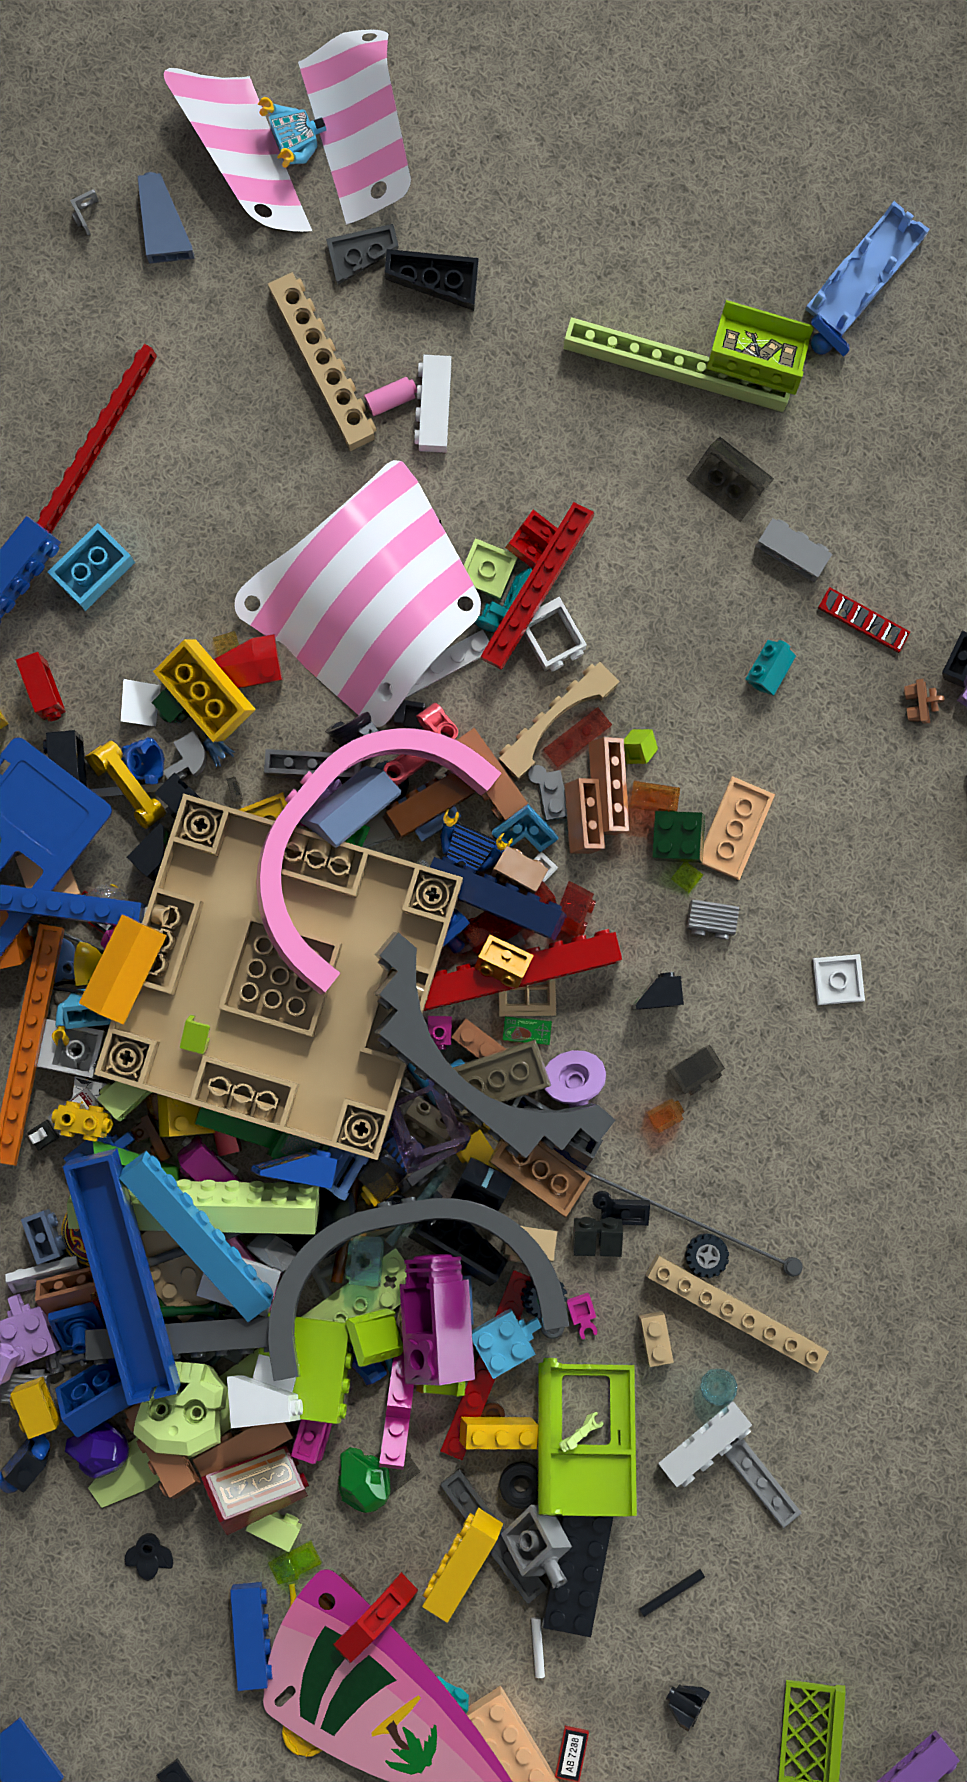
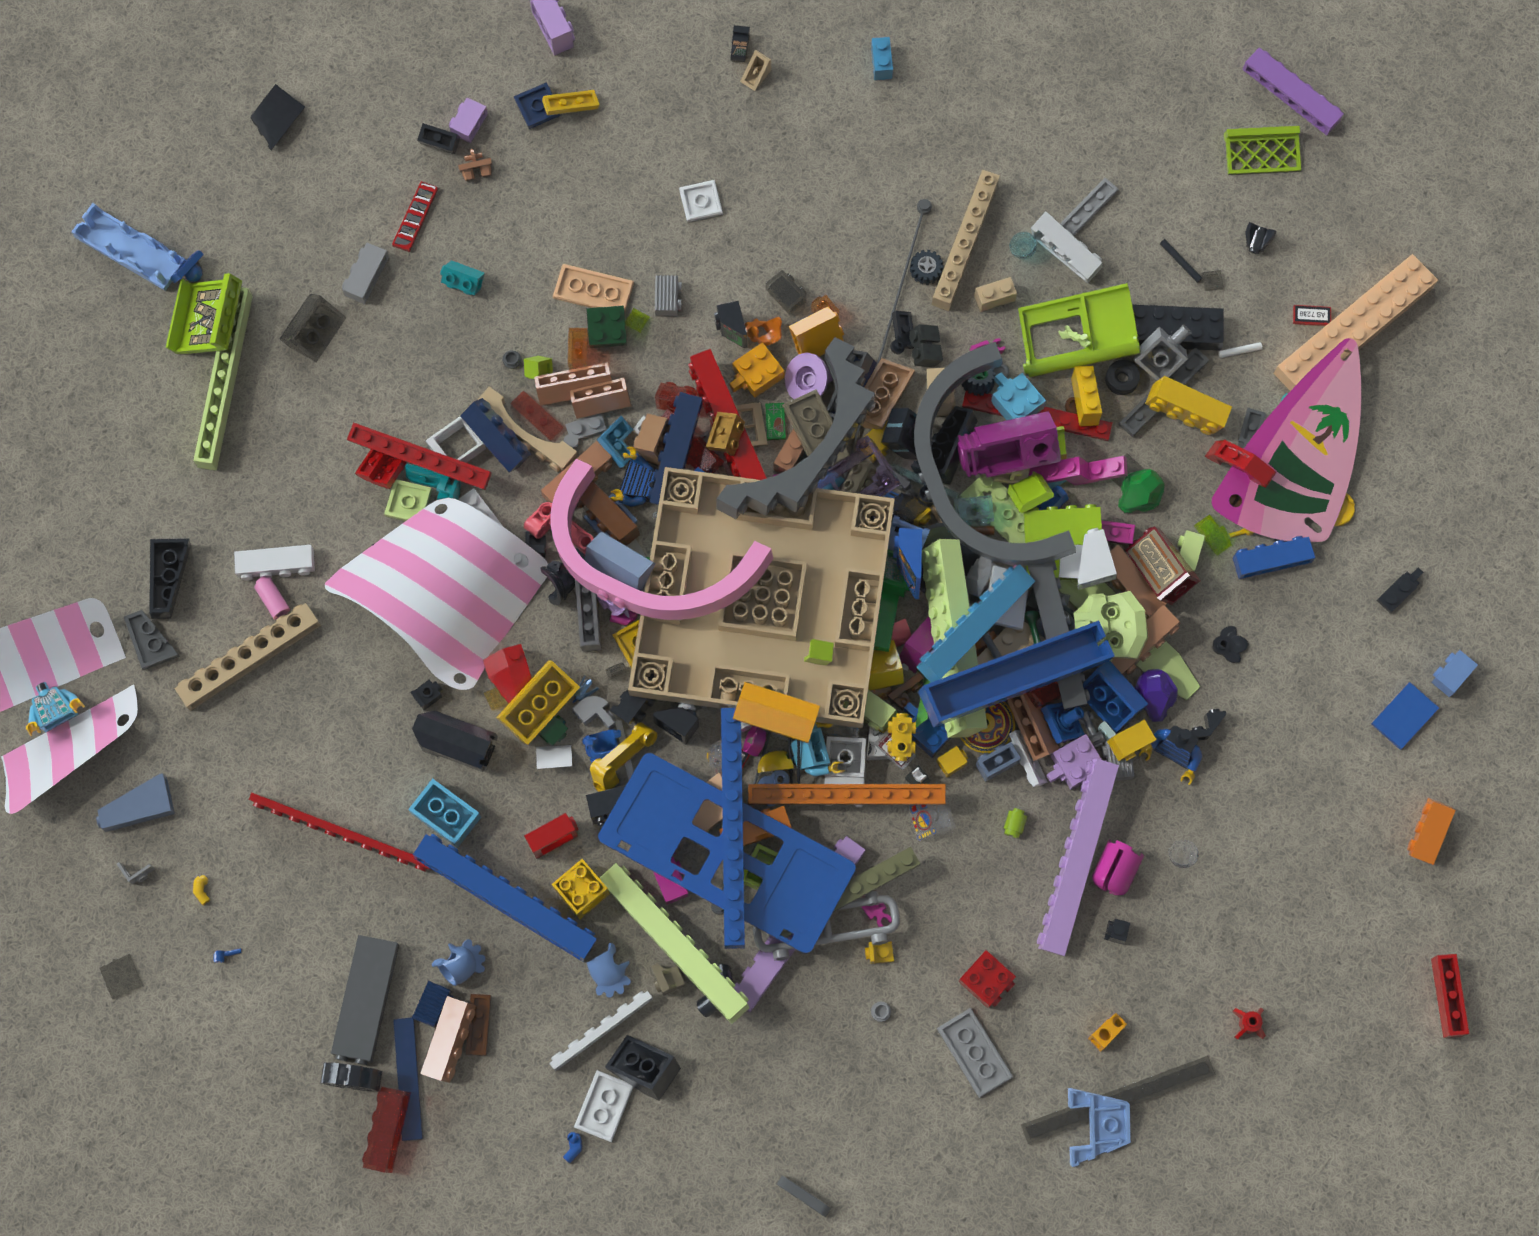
camera: 90 degrees left, 10 degrees down
(49, 1514) = (1212, 720): none -> black slope
(53, 281) = (198, 889): none -> yellow arm
(54, 1181) = (952, 761): none -> yellow brick
(60, 1379) = (1106, 730): none -> light aqua tile
(177, 587) = (454, 739): none -> black brick
(237, 555) = (426, 701): none -> black brick
(424, 1639) = (1252, 422): none -> dark grey hinge
(553, 681) = (495, 435): none -> dark blue brick
(594, 1015) = (756, 371): none -> light orange hinge
(630, 1100) = (816, 332): none -> light orange brick
(636, 1039) = (772, 327): none -> orange helmet
(638, 1629) = (1212, 280): none -> clear smoke tile
(655, 715) = (511, 359): none -> dark grey plate

